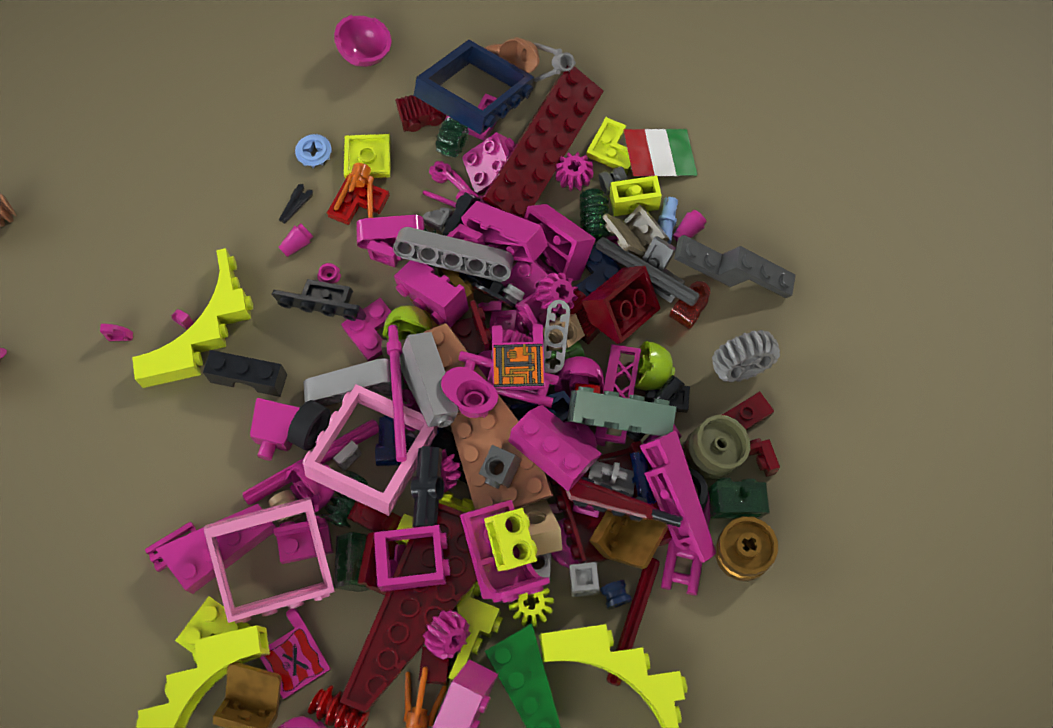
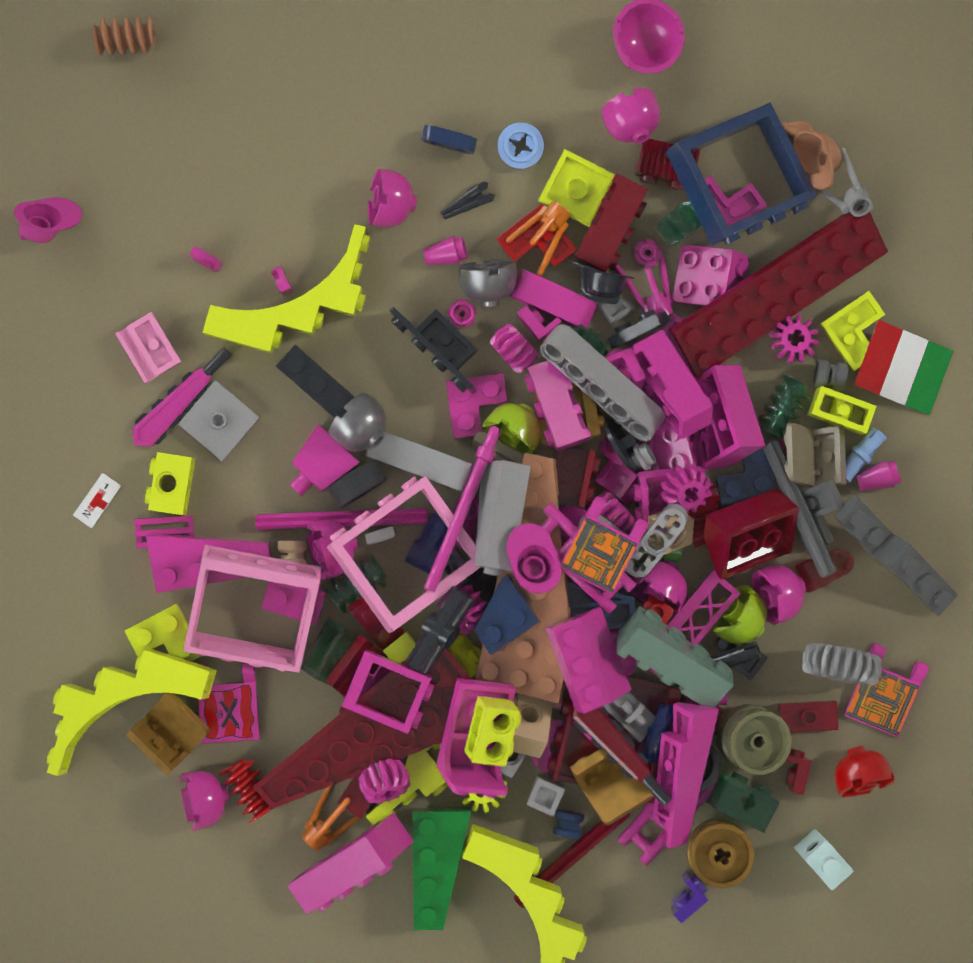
camera: 30 degrees right, 20 degrees up
(99, 416) = (148, 347): none -> bright pink plate
(108, 552) = (97, 500): none -> white sticker
(136, 457) = (166, 412): none -> dark pink sword
(171, 515) = (178, 499): none -> neon yellow brick
(180, 441) = (219, 420): none -> light grey plate
(235, 223) = (390, 200): none -> dark pink cylinder
(259, 169) = (448, 139): none -> dark blue beam
(286, 378) = (361, 425): none -> flat silver cylinder
(334, 239) = (488, 280): none -> flat silver cylinder
(377, 273) = (514, 348): none -> dark pink gear
(378, 89) = (632, 117): none -> dark pink cylinder
(404, 161) = (612, 224): none -> dark red wedge
(415, 199) = (599, 285): none -> black piece
(471, 451) = (505, 617): none -> dark blue wing
(494, 457) = (534, 650): dark grey brick -> none
(670, 332) = (780, 591): none -> dark pink cylinder
(747, 588) = (689, 902): none -> dark purple bracket
(794, 372) = (888, 701): none -> flag
(812, 428) = (861, 772): none -> red cylinder
(828, 509) = (823, 859): none -> light aqua torso

